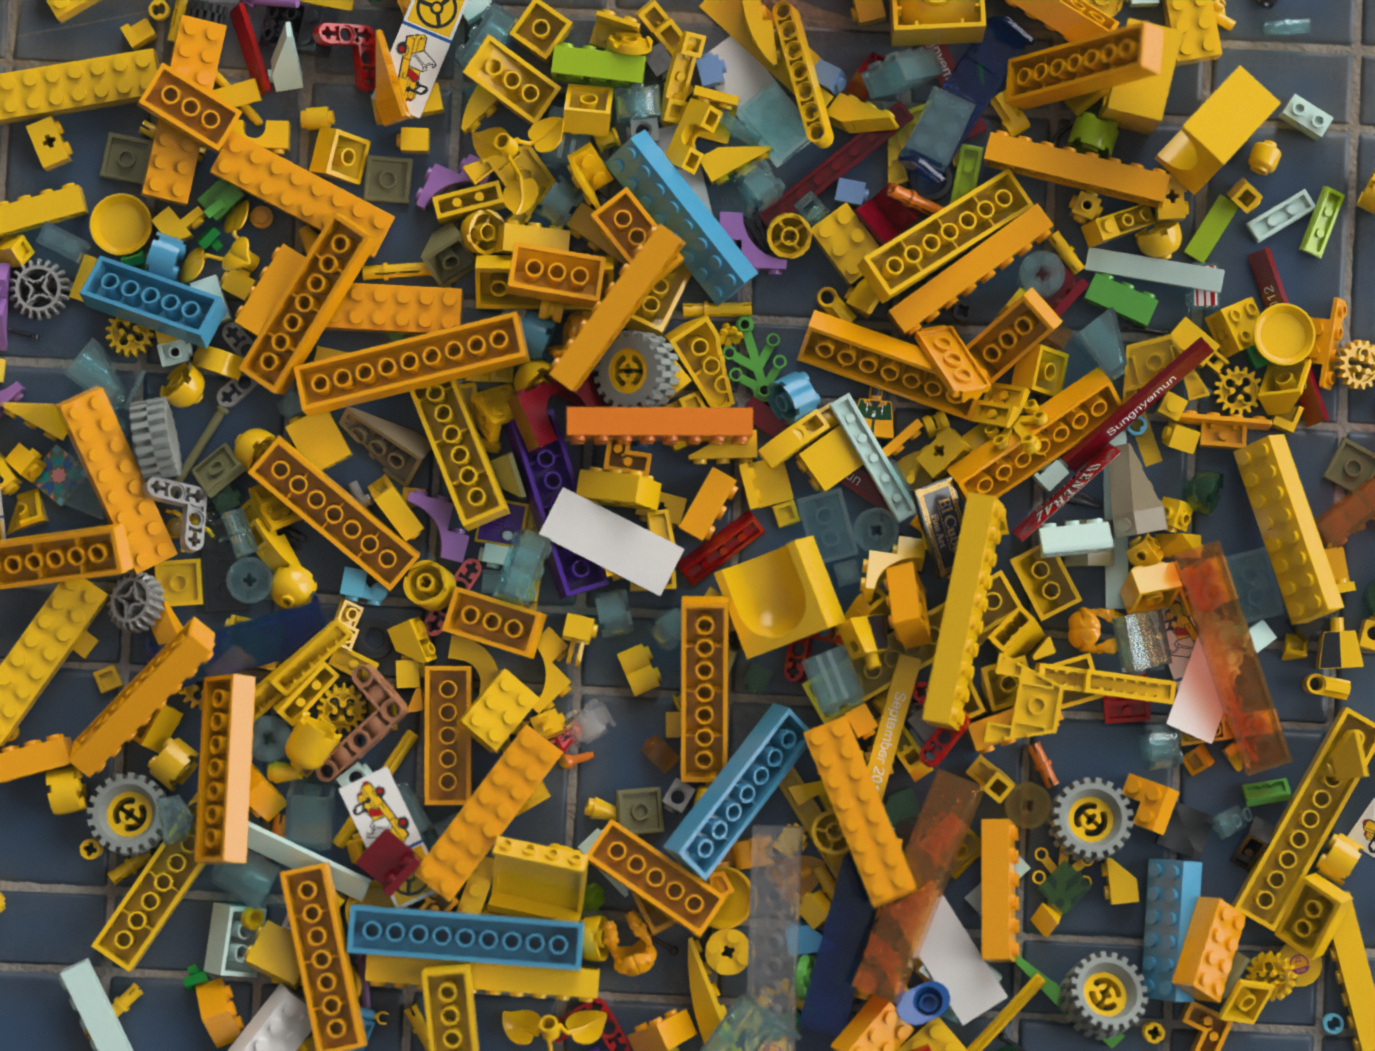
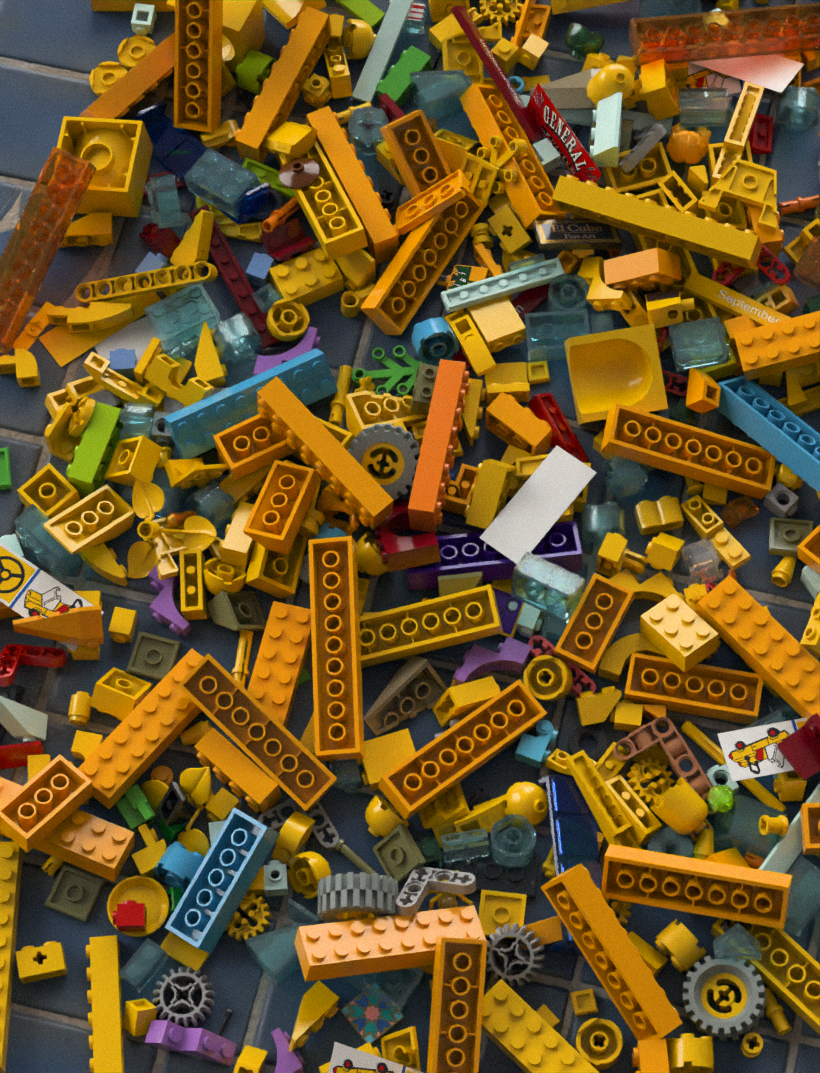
camera: 75 degrees left, 20 degrees down
(26, 462) = (354, 1035): yellow brick -> none
(50, 700) = (600, 1031): none -> yellow brick
(103, 220) = (130, 916): none -> red brick
(219, 238) = (176, 806): none -> black slope
(308, 837) = (773, 825): none -> yellow bush
(327, 780) = (720, 798): none -> clear neon green gear
(491, 410) = (393, 591): yellow bracket -> none
(534, 166) = (174, 519): none -> orange piece
(593, 682) = (664, 551): none -> yellow brick
(628, 731) = (709, 525): none -> yellow slope
(734, 396) = (423, 388): none -> olive brick
(779, 692) = (702, 392): none -> light orange slope
(953, 217) = (299, 173): none -> reddish brown dish
(1003, 192) = (291, 140): none -> yellow slope
(1080, 590) = (645, 140): none -> light grey beam
(1132, 532) = (610, 80): none -> yellow cylinder

